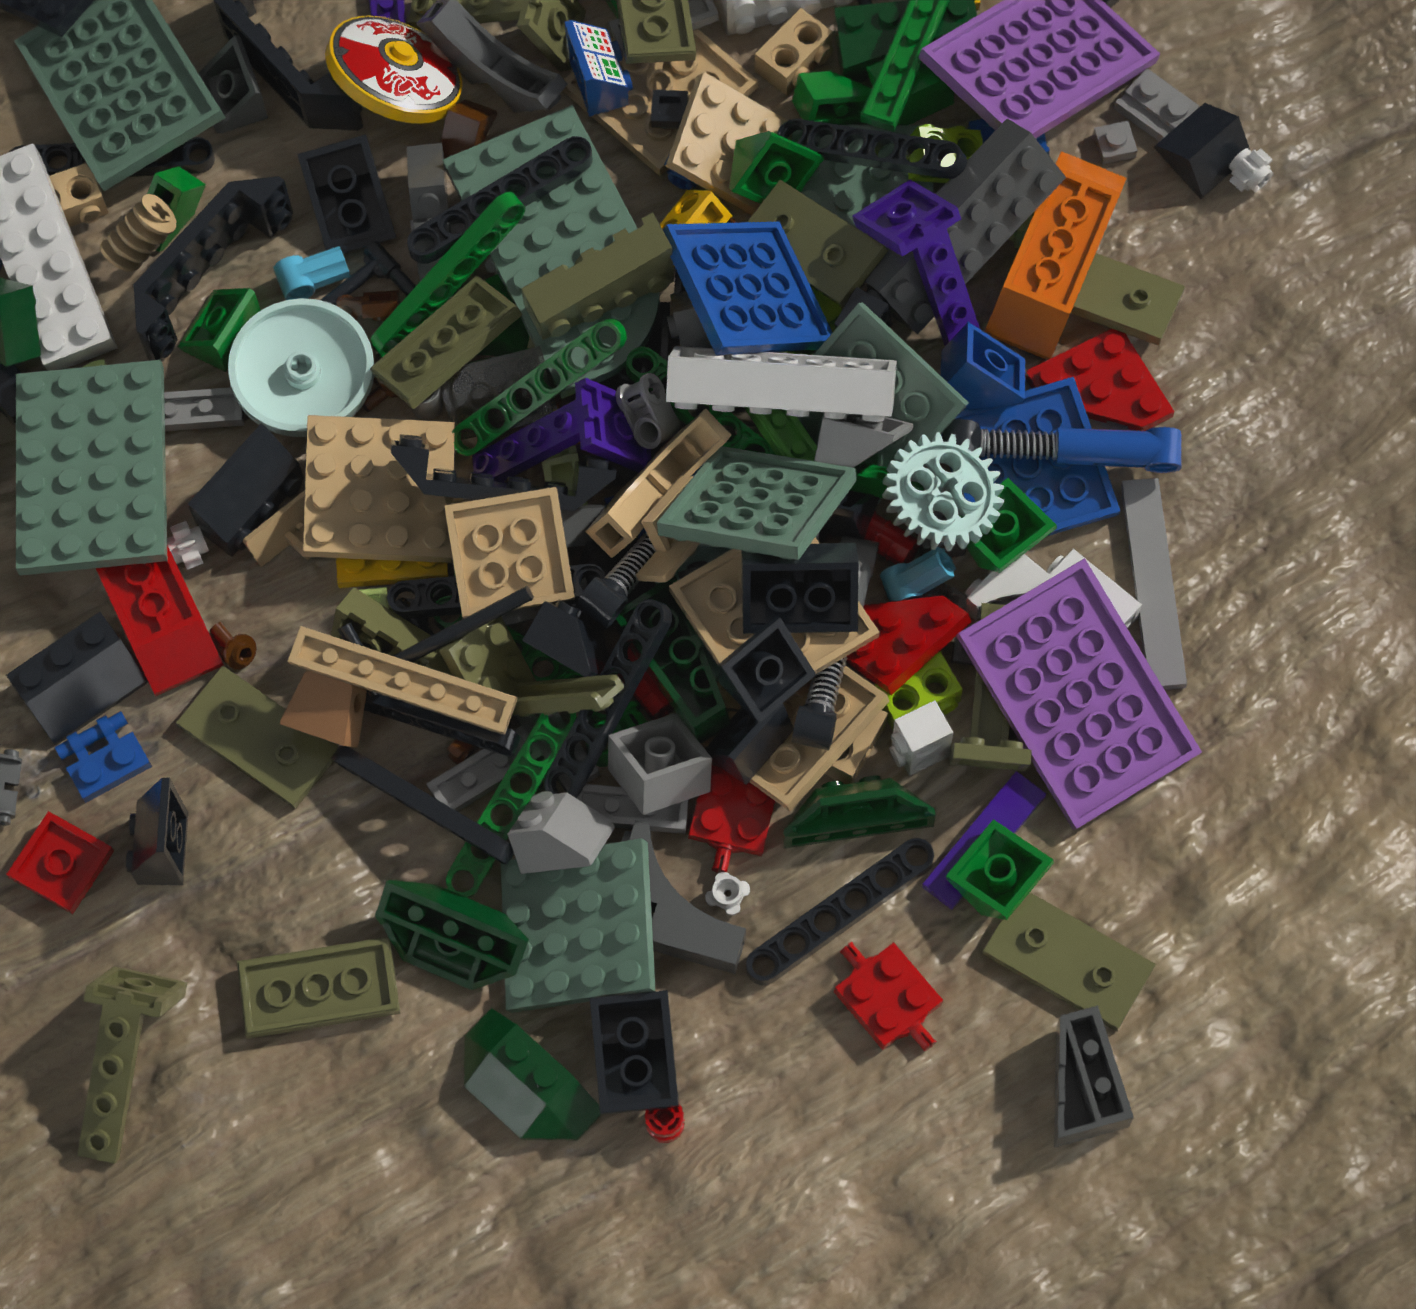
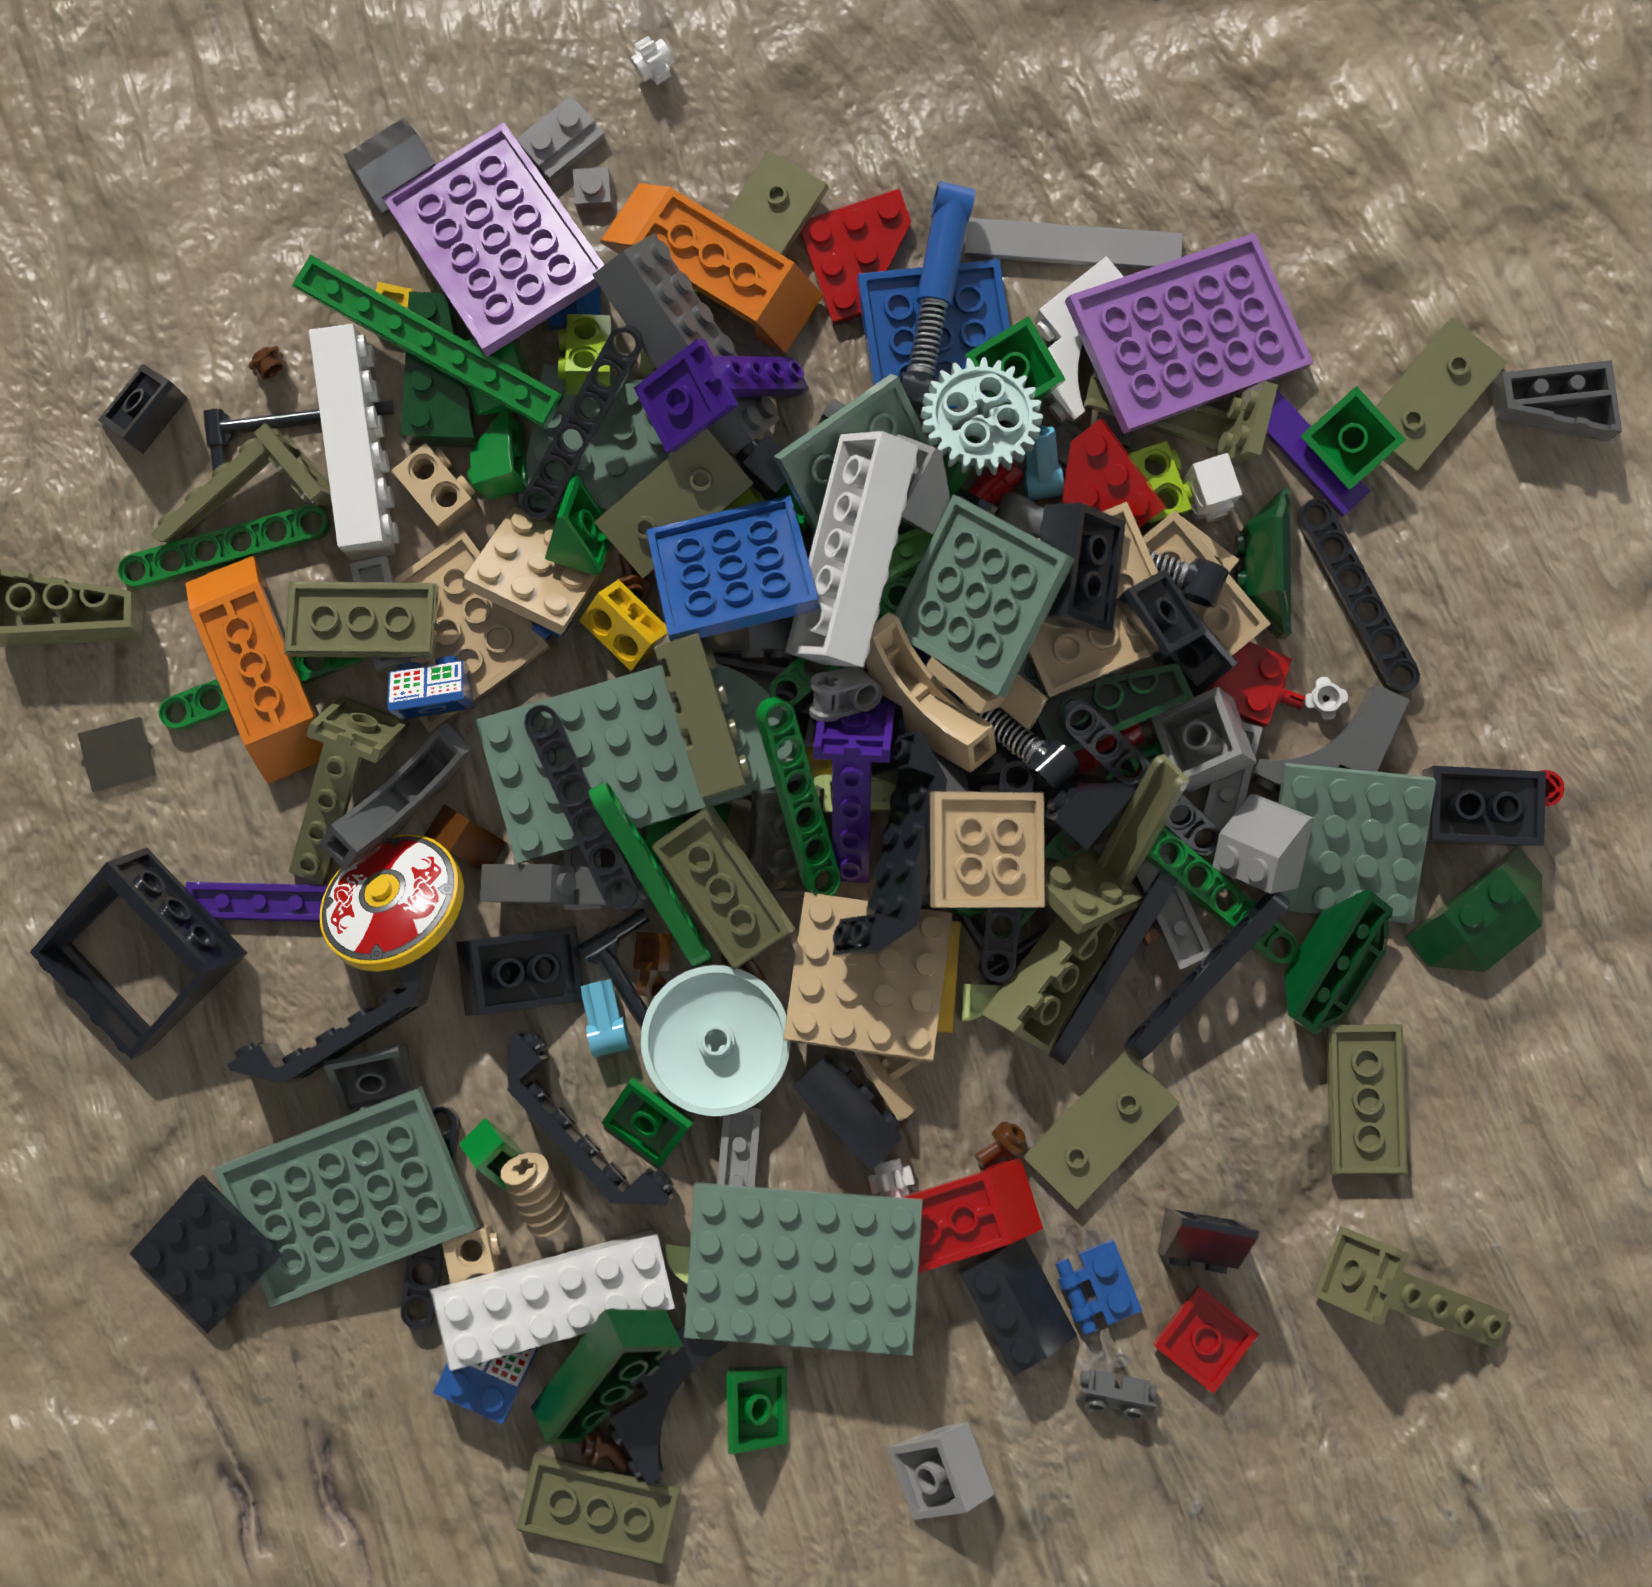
camera: 85 degrees left, 15 degrees up
(326, 709) = (1098, 1054): medium nougat torso -> none
(402, 680) = (1101, 975): tan plate -> none
(454, 631) = (1078, 1001): black bar -> none
(668, 108) = (486, 623): black plate -> none
(888, 996) = (1446, 565): red plate -> none
(983, 369) = (838, 360): blue slope -> none
(1204, 147) = (616, 101): black slope -> none

